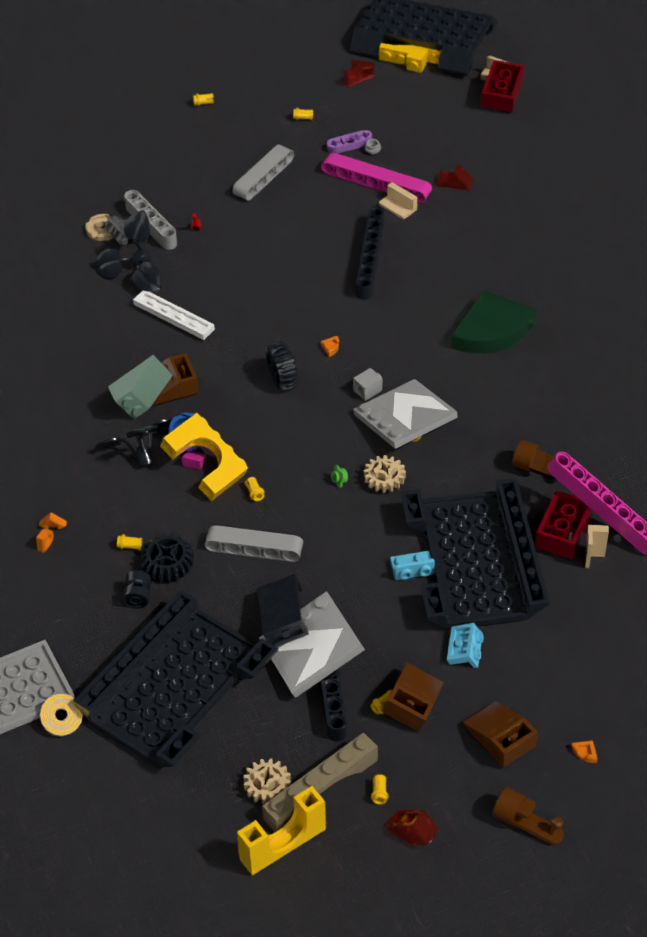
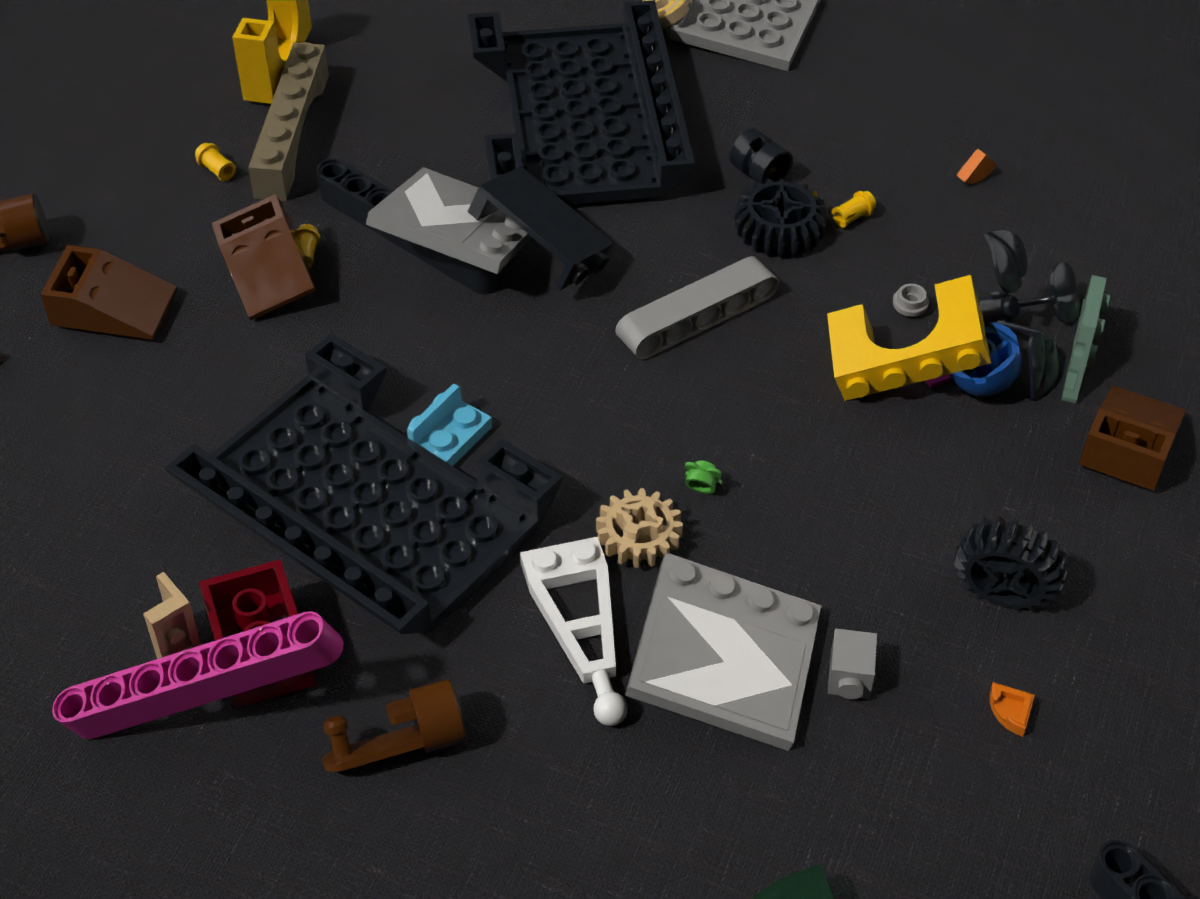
camera: 135 degrees right, 0 degrees up
(44, 540) = (953, 142): orange tile -> none
(129, 417) = (1088, 330): none -> sand green wing
(140, 386) = (1130, 353): sand green slope -> none
(166, 488) = (911, 300): none -> light grey plate
(256, 492) = (796, 378): yellow pin -> none
(256, 780) = (356, 90): tan gear -> none
(413, 826) = (134, 145): clear red slope -> none
(428, 486) = (569, 565): none -> white plate
(465, 645) = (257, 371): medium azure bracket -> none

